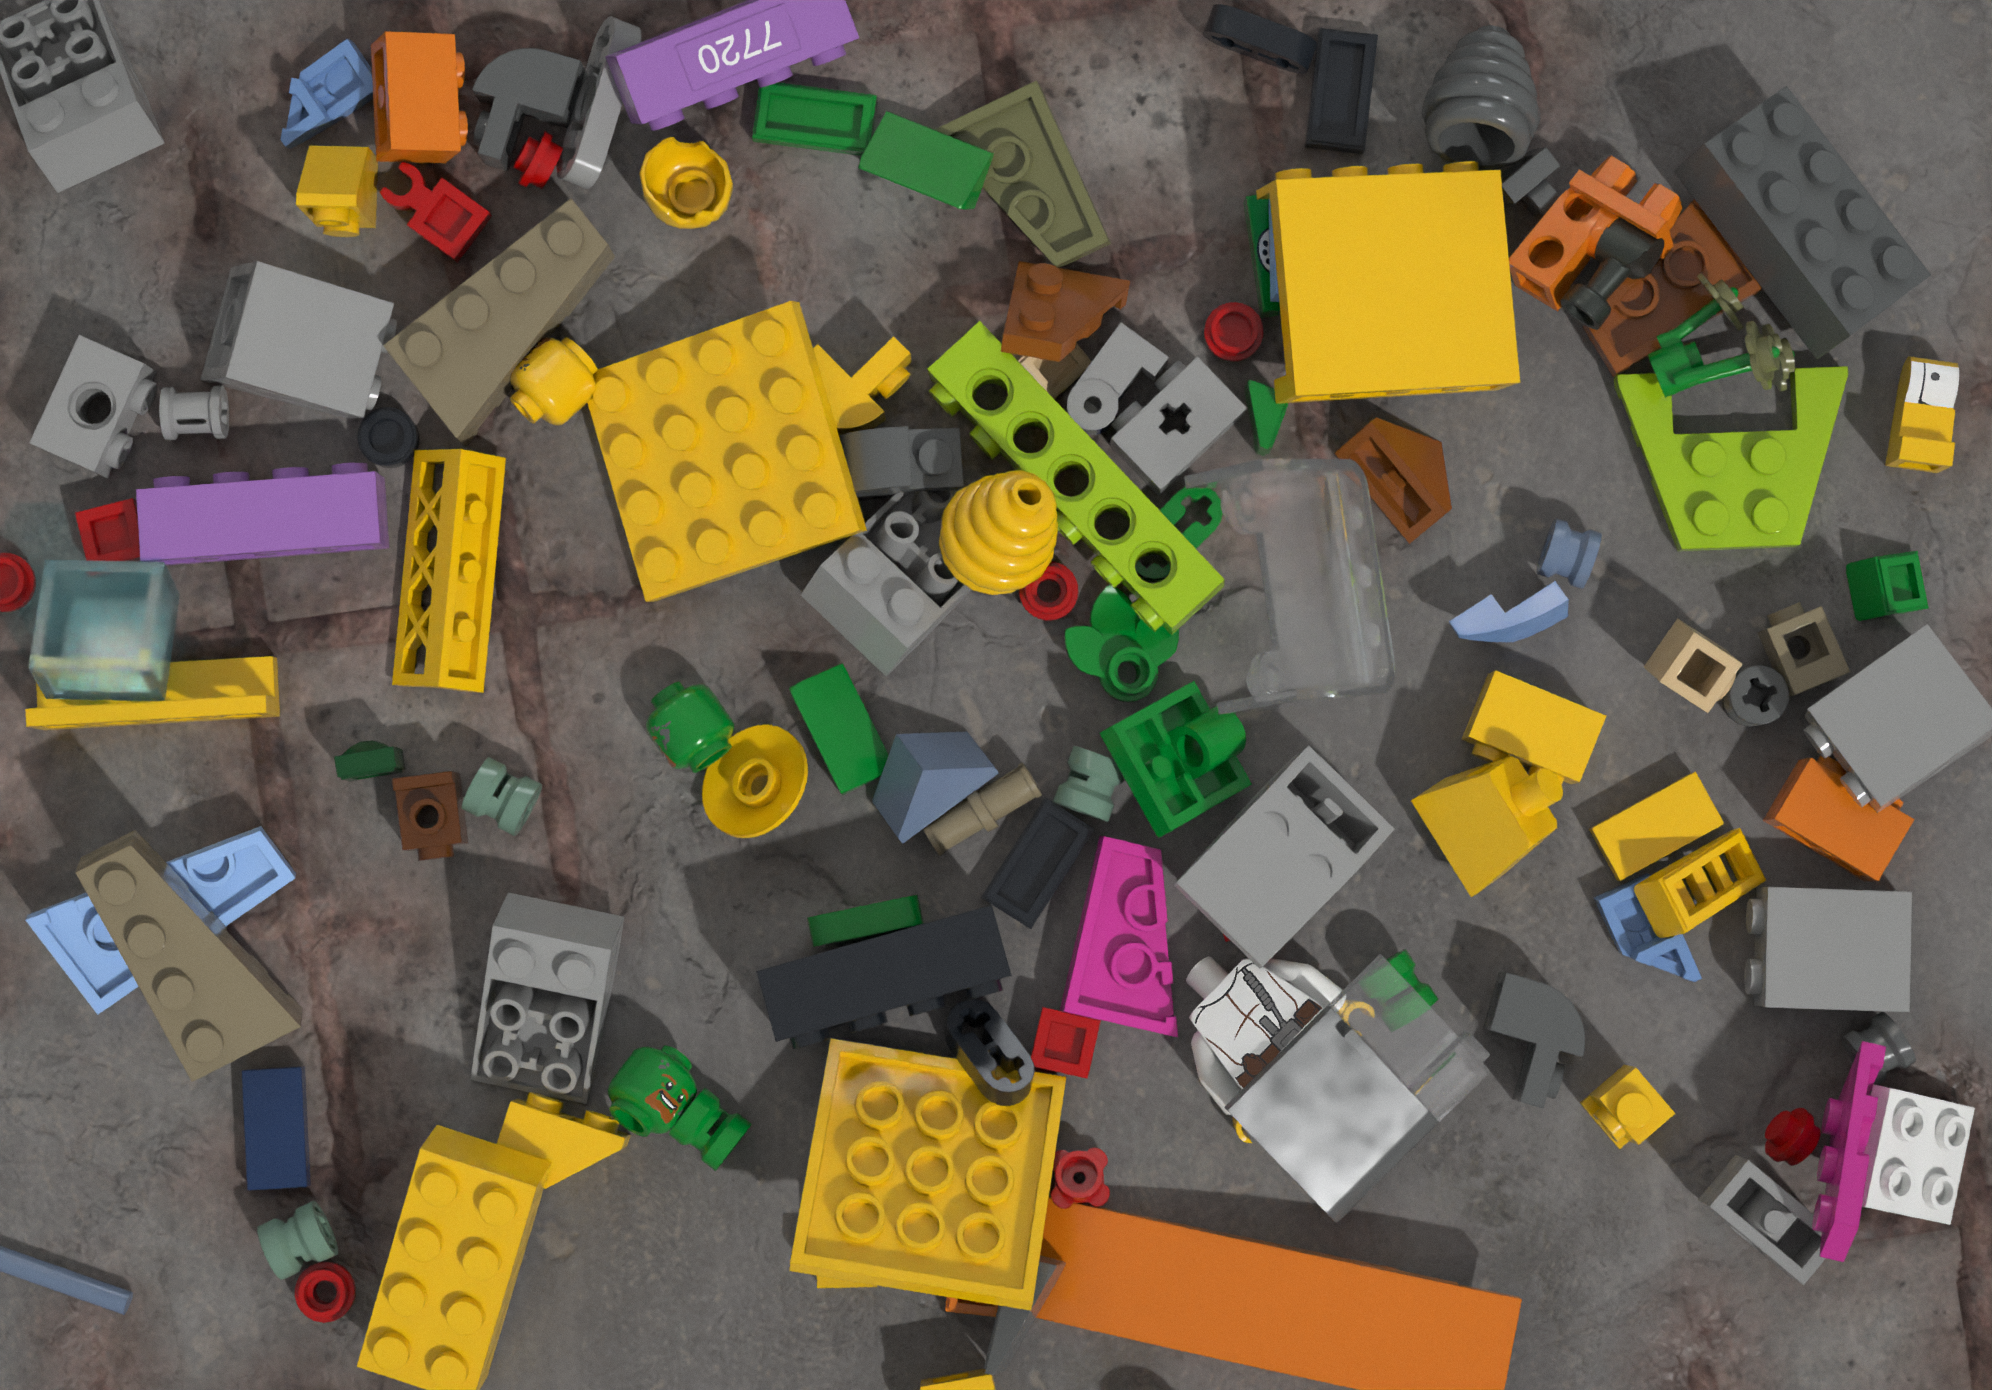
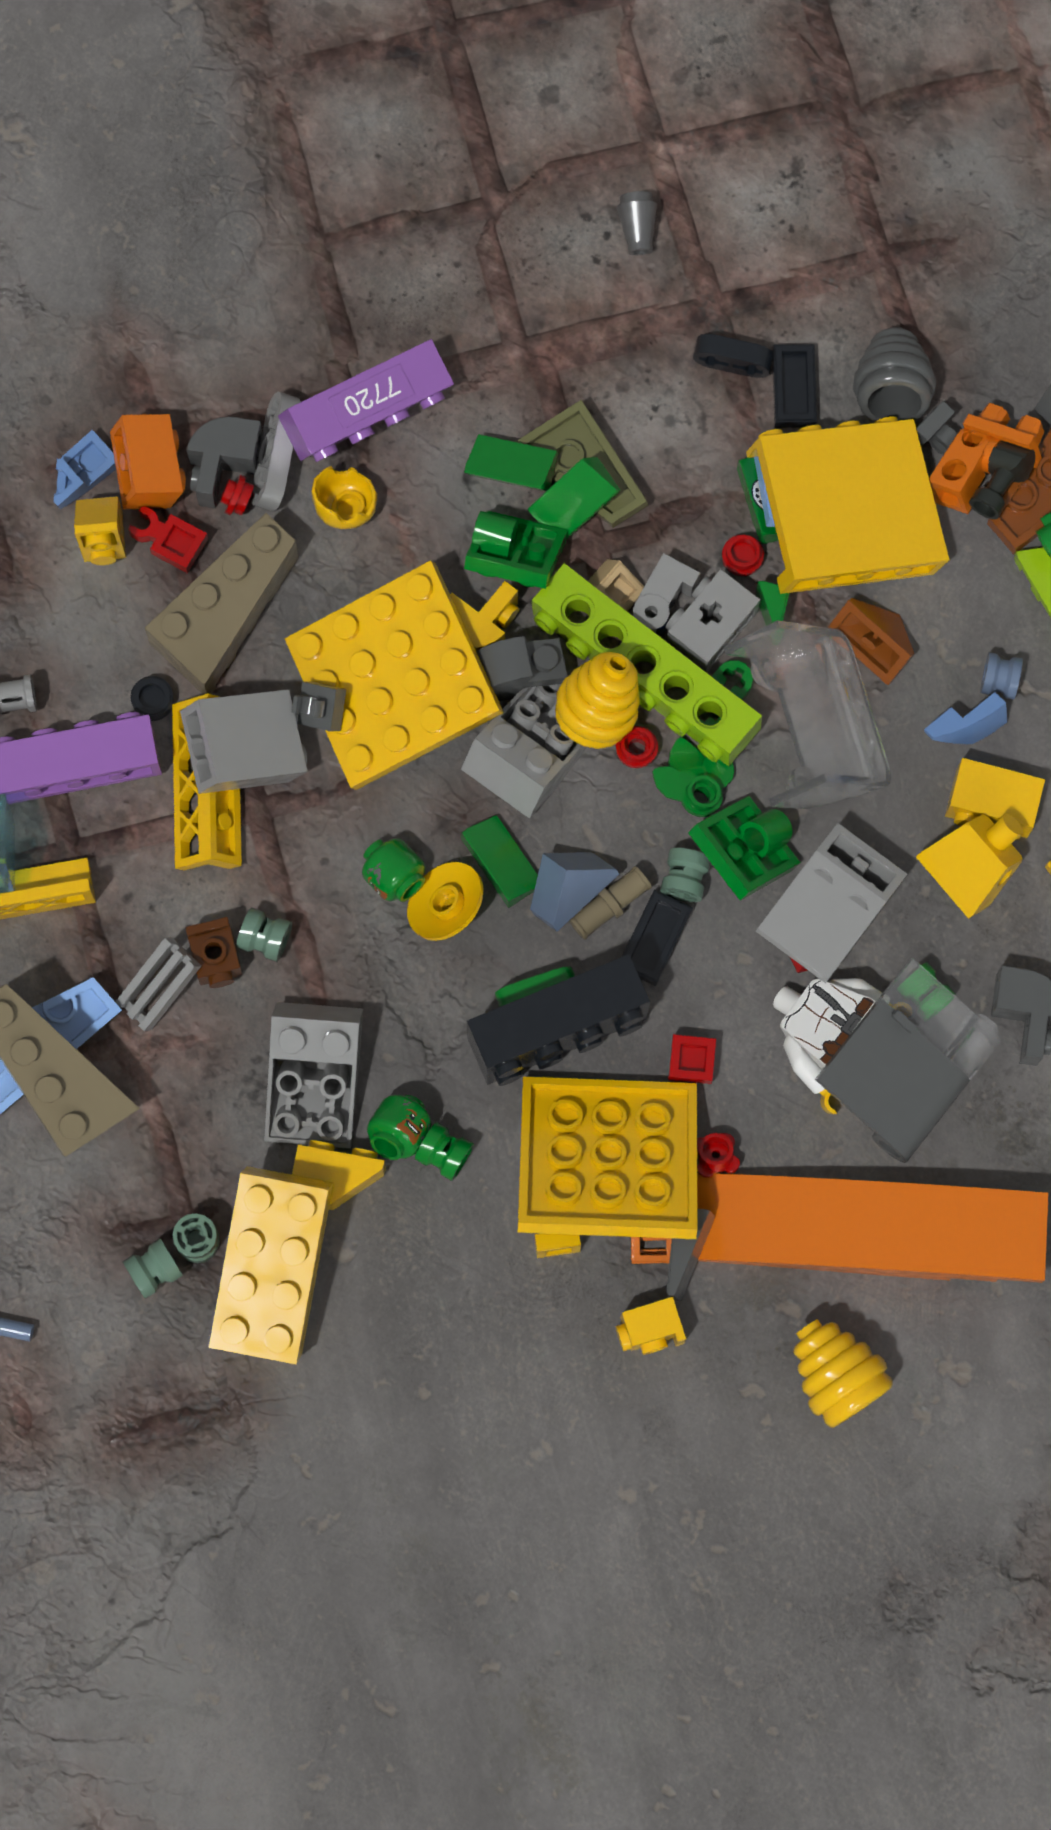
camera: 10 degrees left, 10 degrees down
(276, 1128) = (126, 1192): dark blue tile -> none
(299, 340) = (81, 635): light grey slope -> none
(307, 1297) = (172, 1292): red plate -> none
(318, 875) = (136, 1009): none -> light grey tile
(368, 761) = (165, 922): dark green tile -> none
(368, 1198) = (200, 1244): none -> sand green wheel
(503, 525) = (244, 741): none -> light grey brick
(553, 381) = (266, 643): yellow head -> none
(614, 485) = (320, 706): none -> dark grey tile
(814, 118) = (427, 446): green tile -> none
(914, 289) = (515, 549): none -> green plate
(999, 1045) = (643, 1067): black beam -> none
(1008, 226) = (575, 496): none -> green slope
(1056, 309) = (616, 551): dark orange wing -> none
(1121, 946) = (723, 983): dark pink wing -> none

